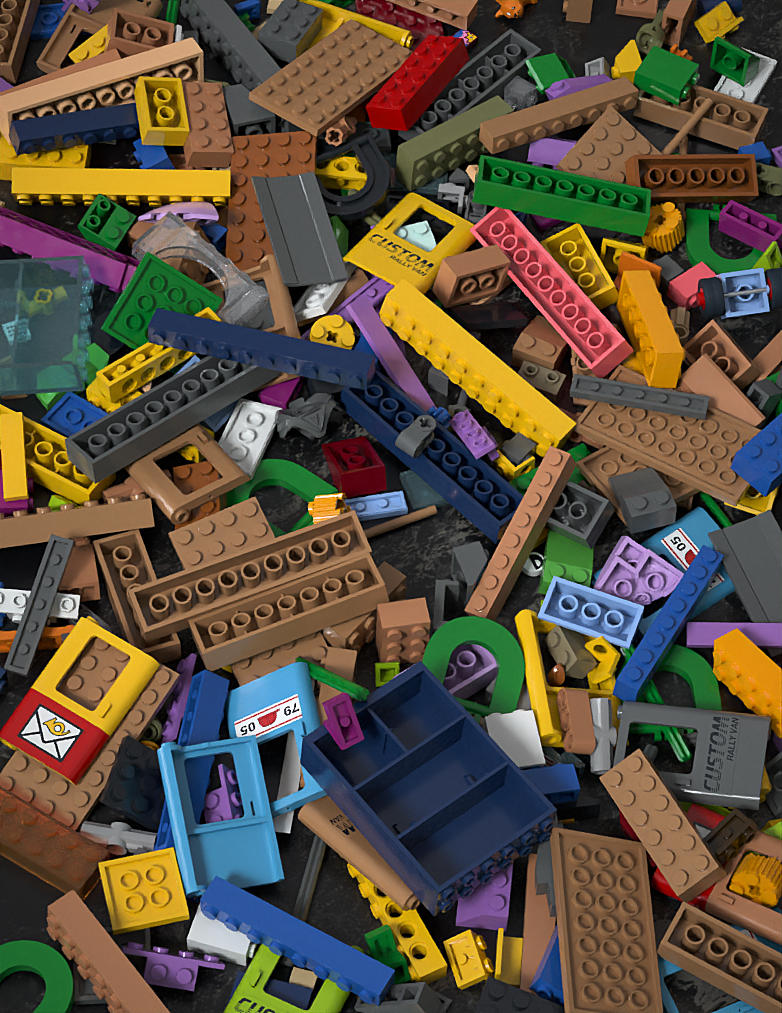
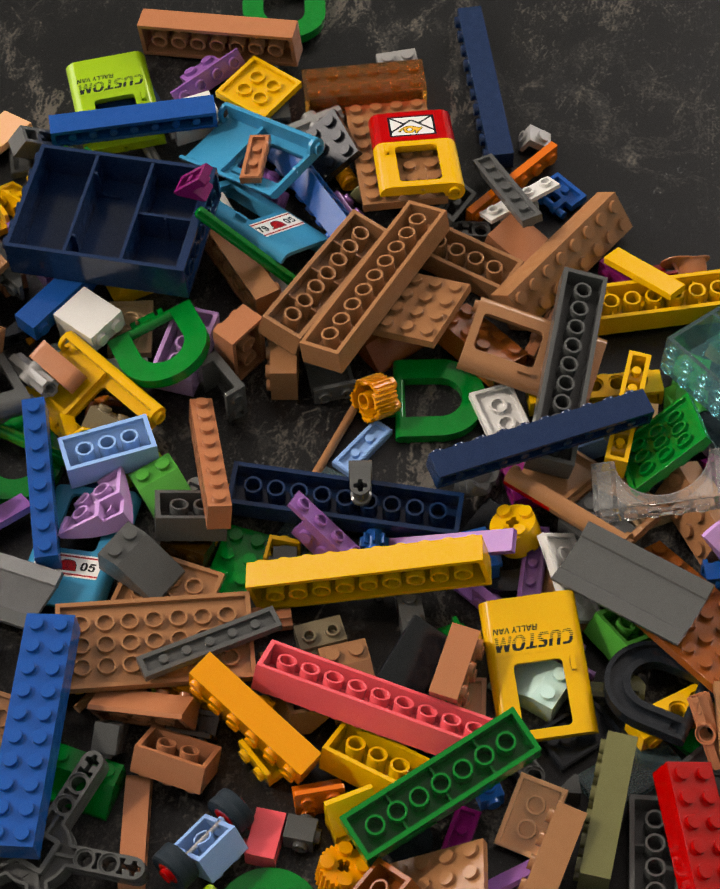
camera: 145 degrees right, 0 degrees up
(71, 415) = (618, 350): blue plate -> none
(228, 791) = (255, 159): none -> nougat tile
(355, 467) = (400, 459): dark red slope -> none
(453, 193) = (561, 768): light grey bracket -> none
(468, 567) = (235, 430): dark grey slope -> none
(681, 323) = (245, 783): tan piece -> none

